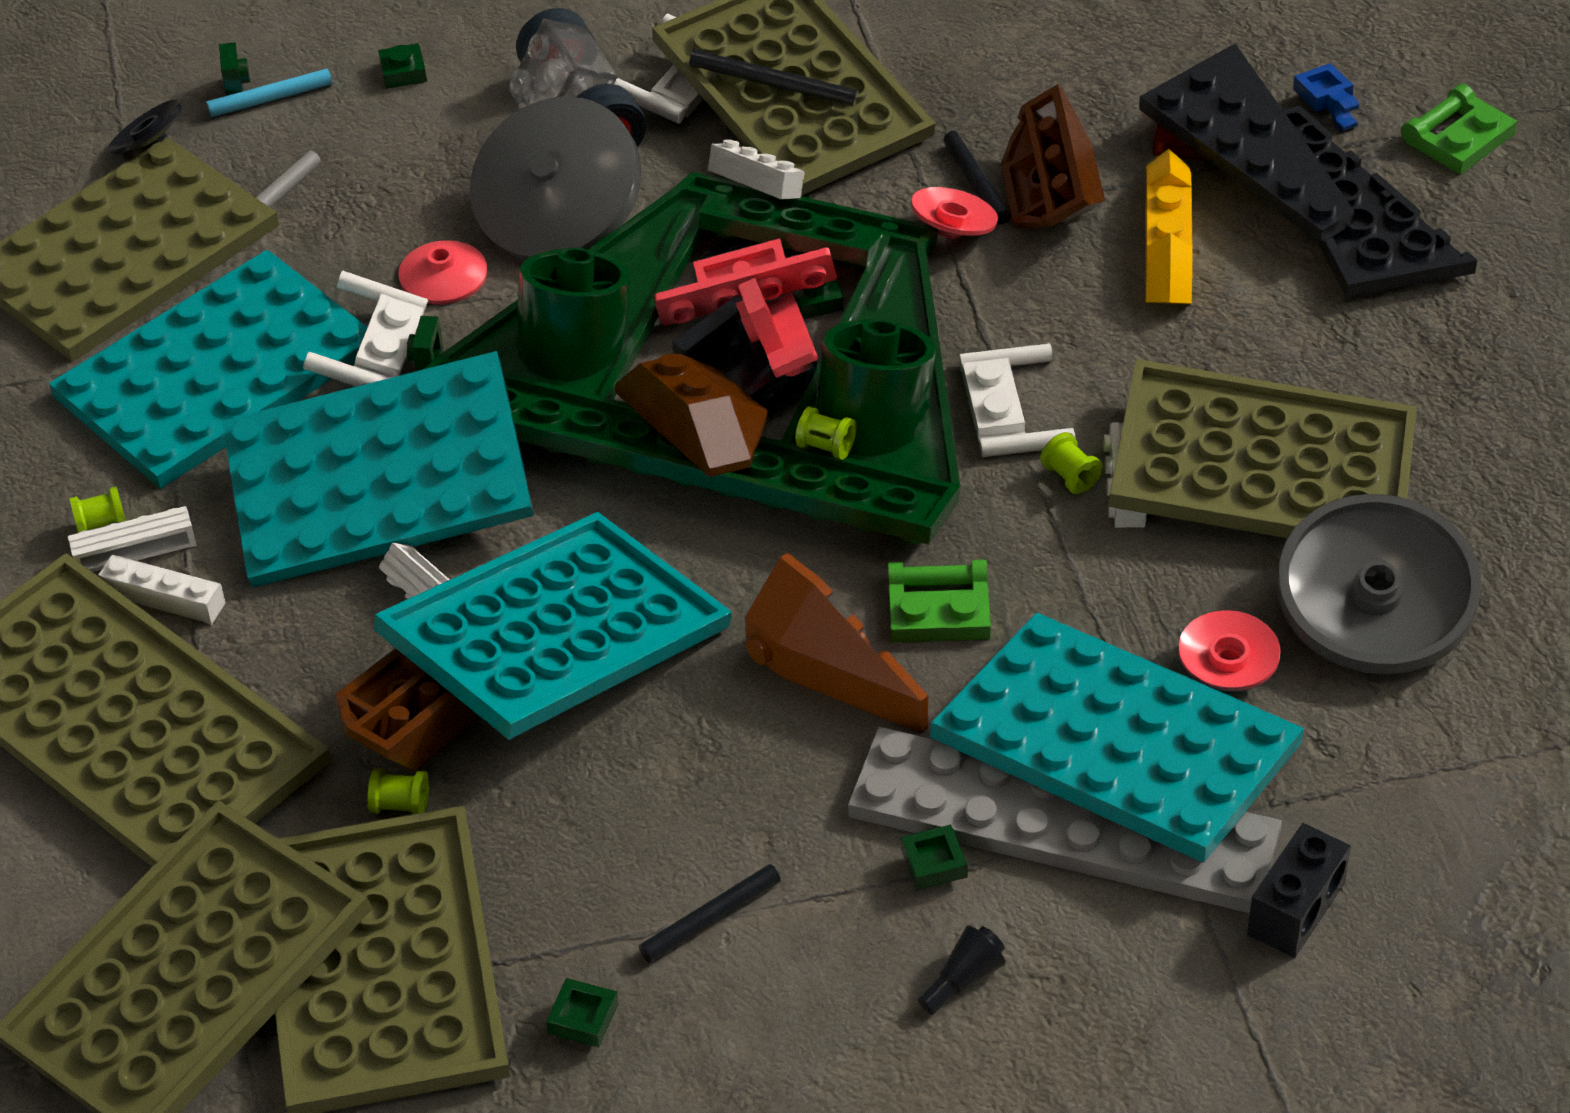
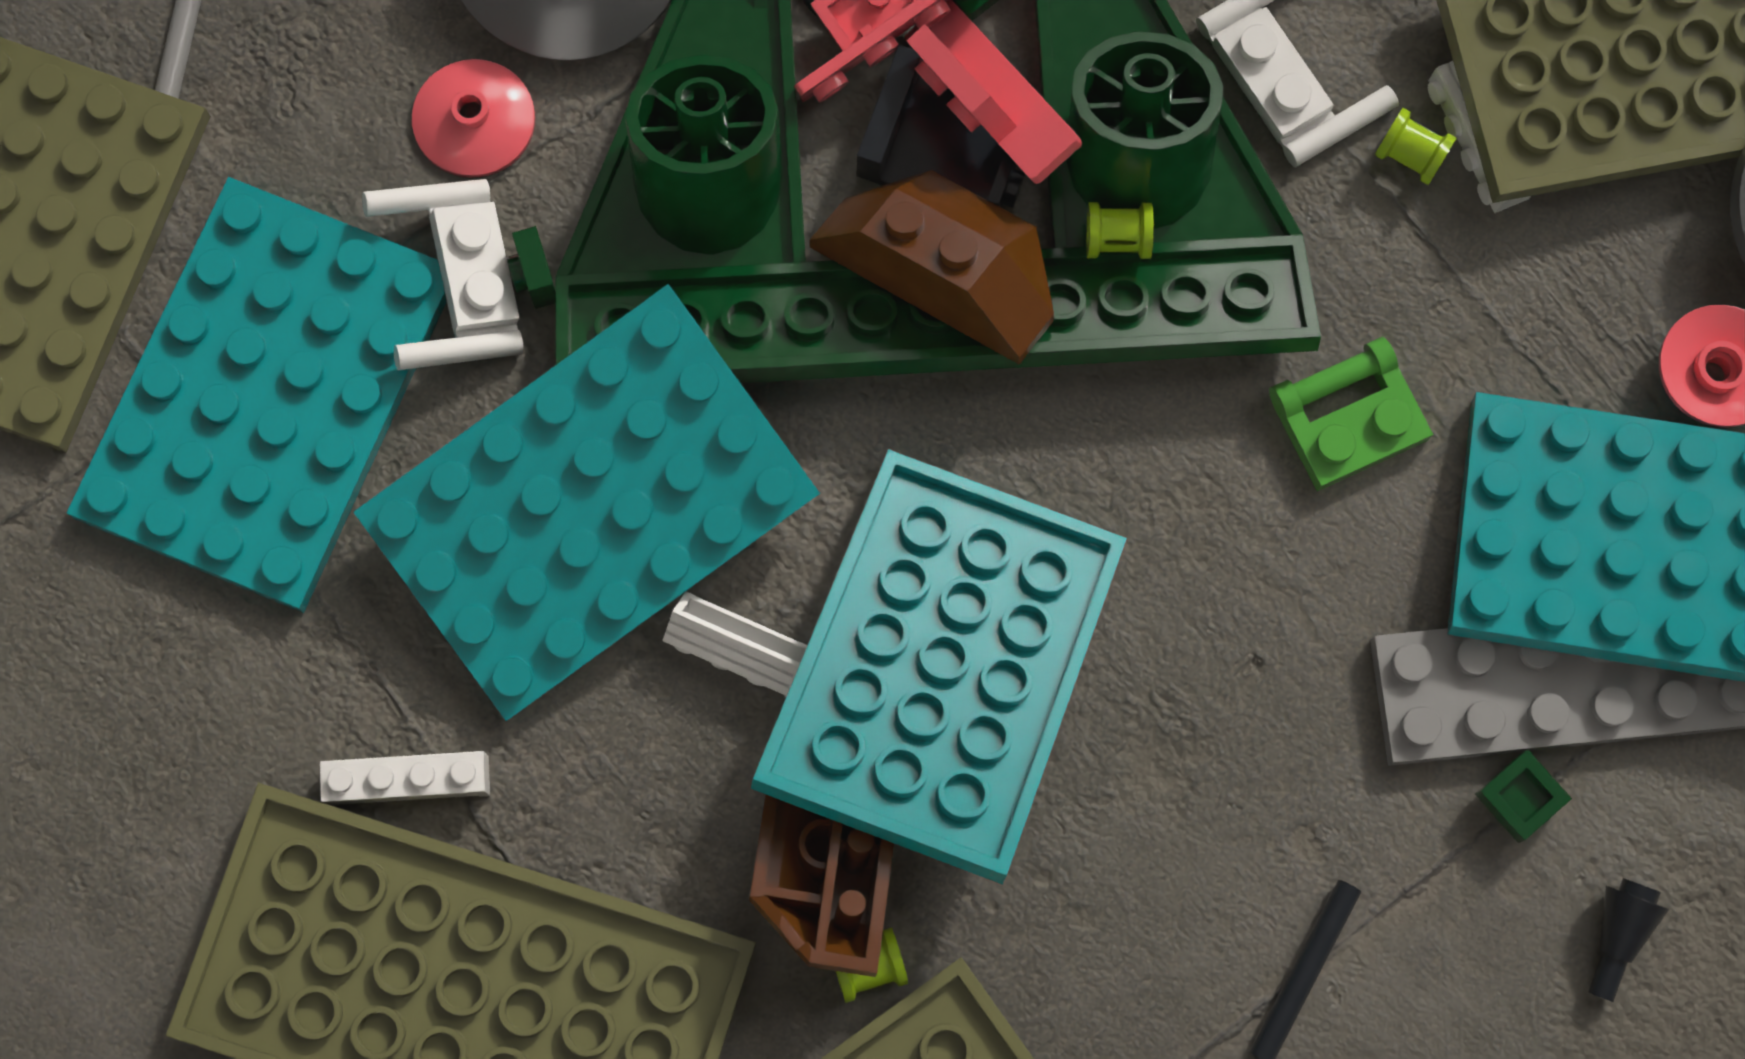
camera: 30 degrees left, 30 degrees up
(97, 510) = (258, 698): lime bush -> none
(134, 538) = (323, 718): white piece -> none
(813, 645) = (1237, 549): dark orange wedge -> none

